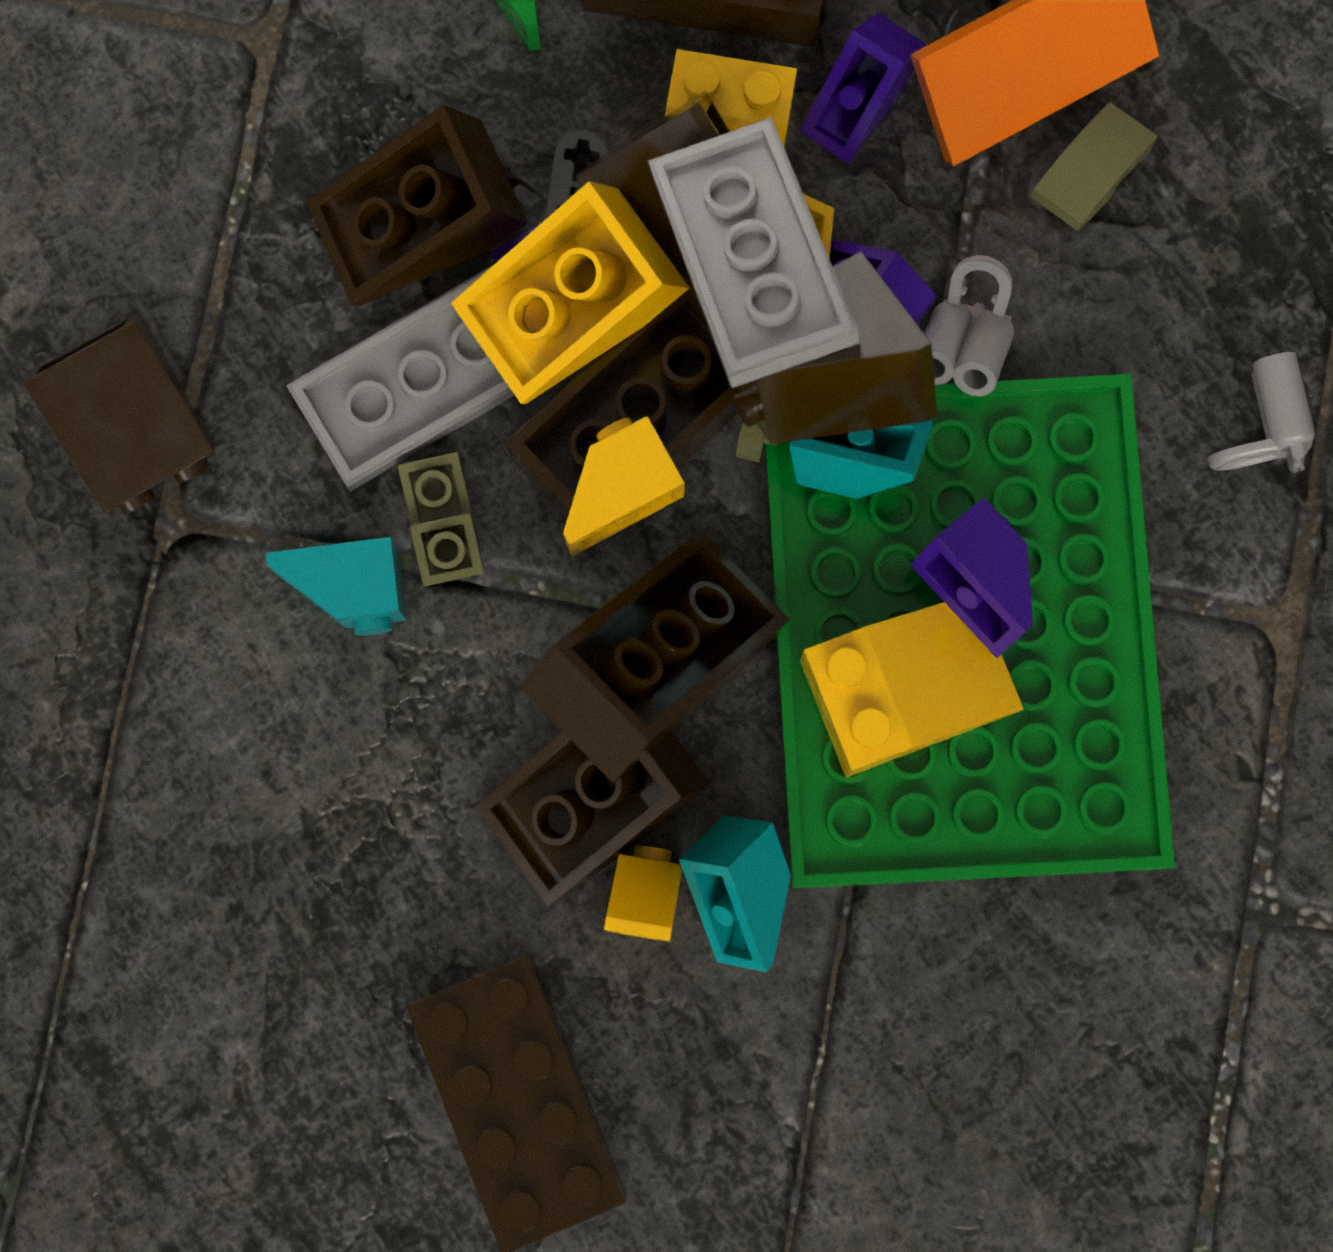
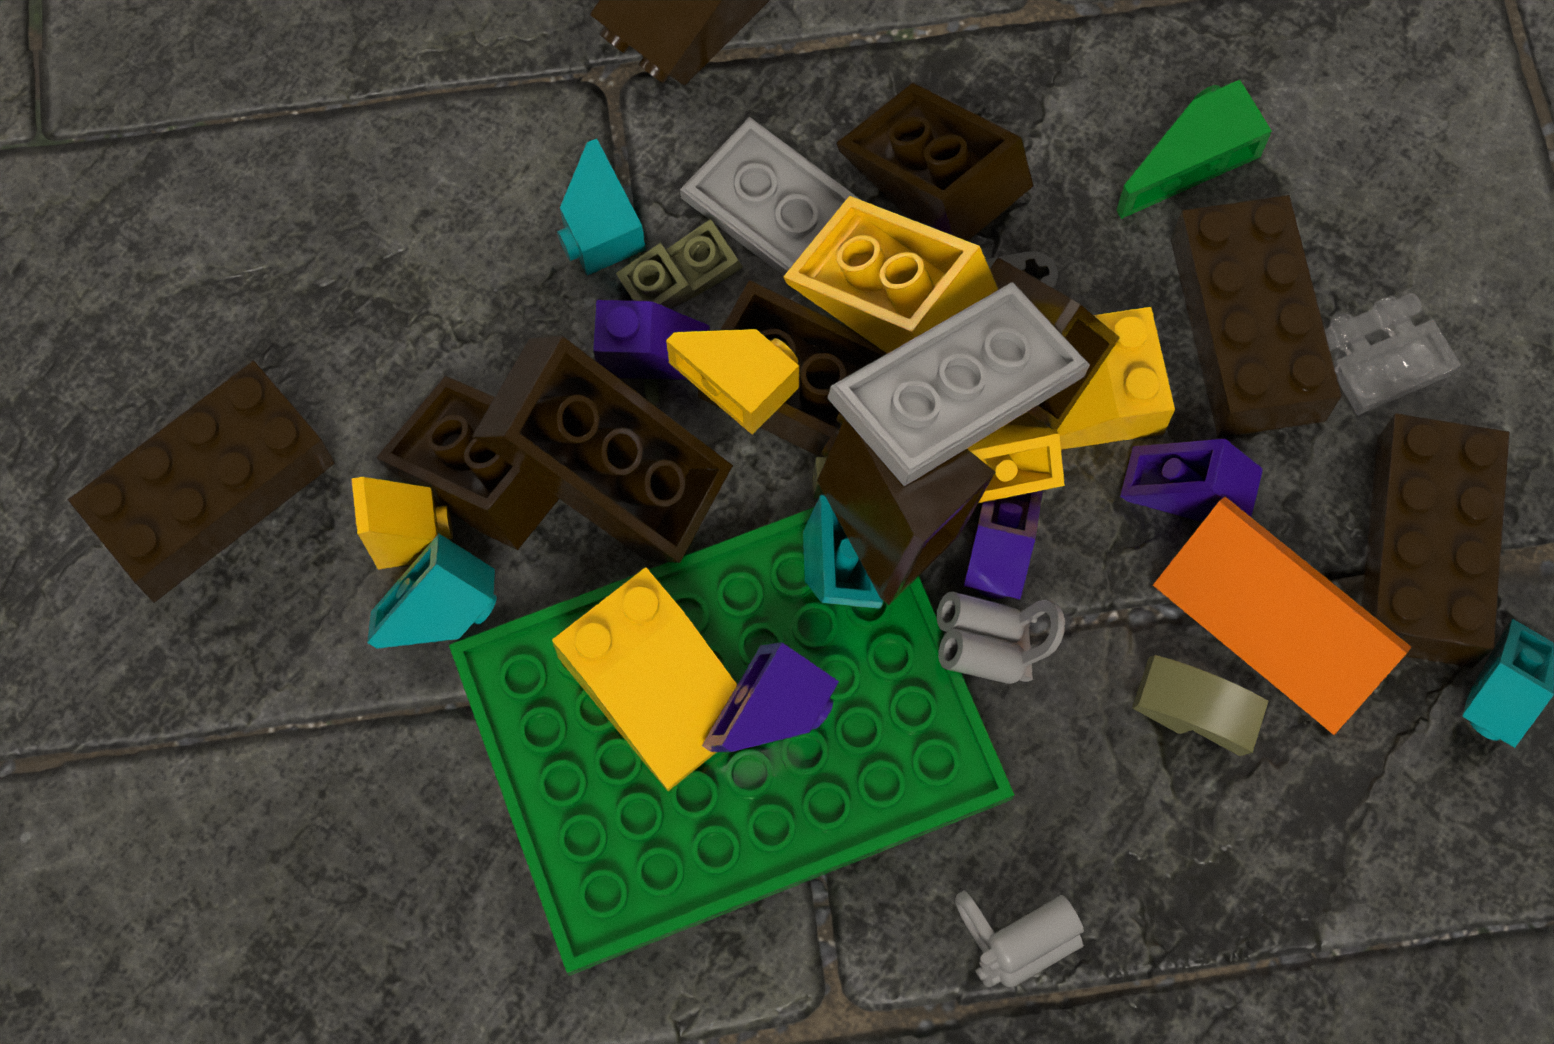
camera: 70 degrees right, 10 degrees down
(519, 576) = (634, 335): none -> dark purple slope

